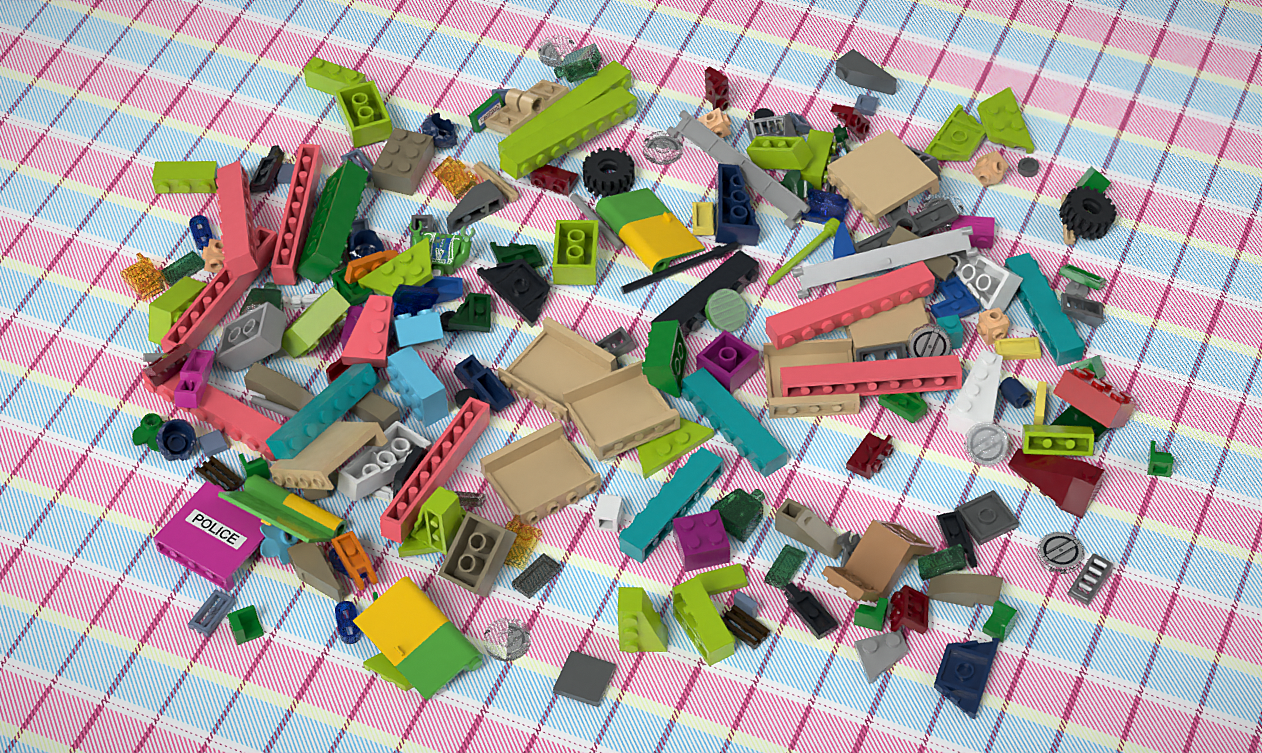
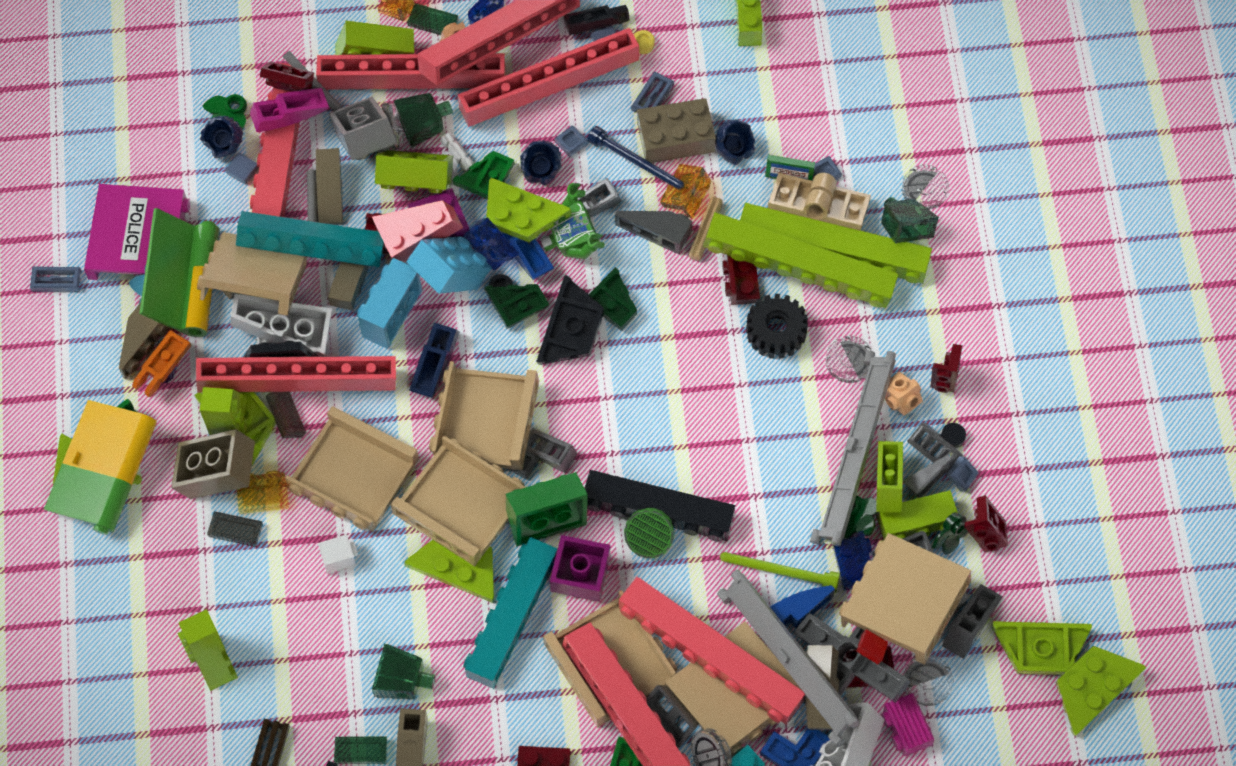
camera: 60 degrees right, 15 degrees up
(223, 469) = (198, 194): dark brown tile -> none
(245, 624) = (51, 313): green panel -> none
(258, 466) = (225, 217): green panel -> none
(332, 222) = (551, 114): green brick -> none
(342, 623) = (99, 393): clear blue beam -> none
(361, 267) = (518, 178): orange hinge -> none
(363, 113) = (714, 59): lime brick -> none
(373, 208) = (598, 137): none -> dark blue piece
(463, 395) = (410, 354): black tile -> none
(507, 639) = (151, 542): clear tile -> none
(575, 252) = (645, 352): lime brick -> none
(584, 678) = (139, 632): dark grey tile -> none
(592, 216) = (709, 349): light grey bar -> none
(647, 228) = (725, 403): door -> none
(672, 502) = (377, 606): teal brick -> none
(701, 540) = (345, 655): magenta brick -> none
(702, 621) = (246, 707): lime wedge -> none
(703, 218) = (771, 448): light yellow tile -> none
(716, 252) = (731, 484): black bar -> none
(723, 579) = (315, 698): lime tile -> none
(733, 209) = (791, 470): dark blue wedge -> none
(746, 604) = (290, 735): sand blue tile -> none
(863, 73) = (1077, 500): dark grey slope -> none
(866, 104) = (1037, 529): sand blue tile -> none
(911, 207) = (872, 646): none -> red tile
(990, 168) = (1008, 702): light nougat brick -> none
(1028, 167) = (1046, 741): dark grey tile -> none

